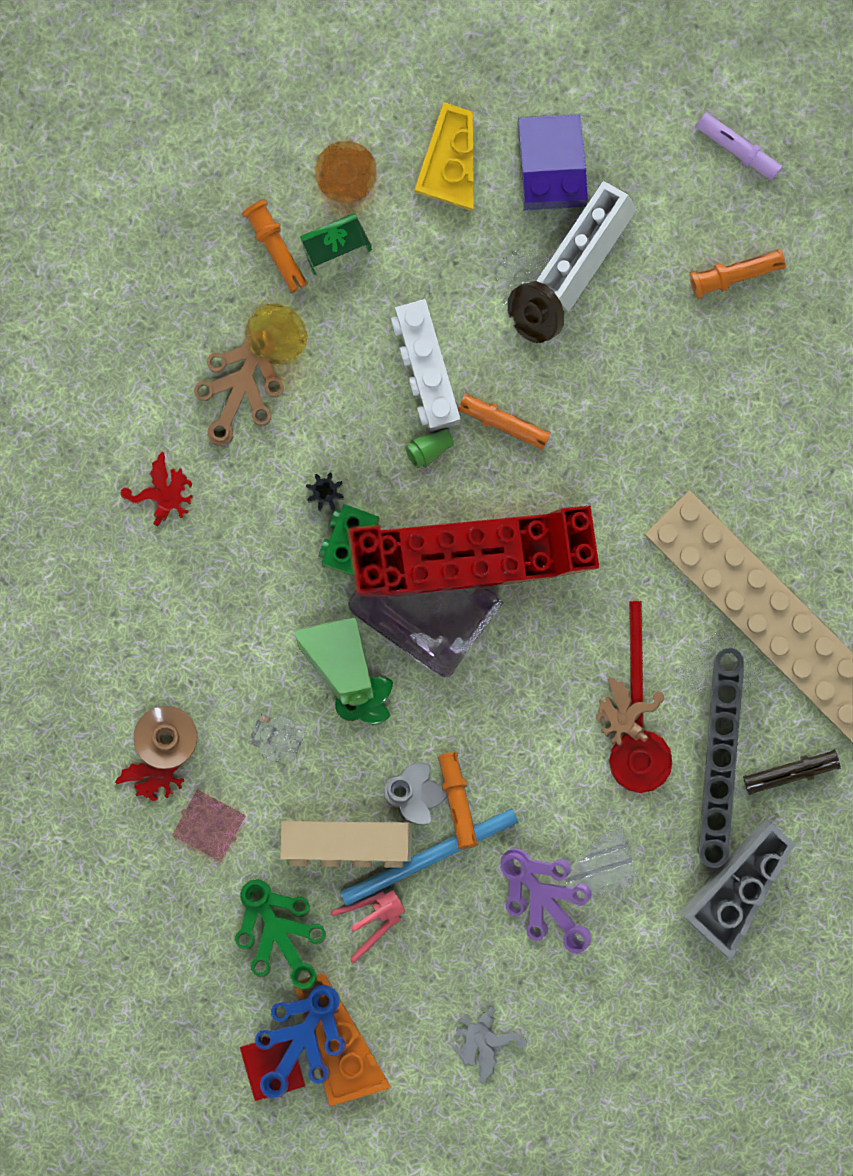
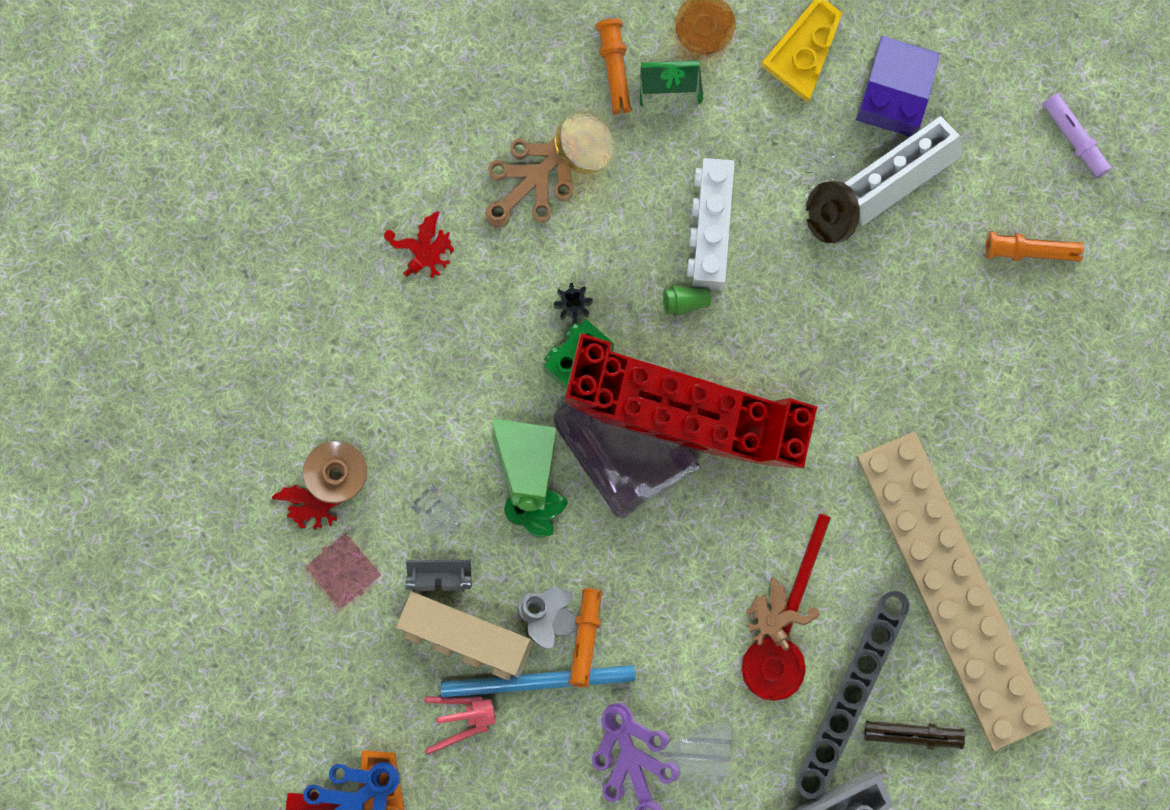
camera: 20 degrees right, 5 degrees down
(276, 929) = (366, 693): green plant -> none
(307, 791) = (447, 574): none -> dark grey hinge
(503, 421) = (764, 302): orange pin -> none

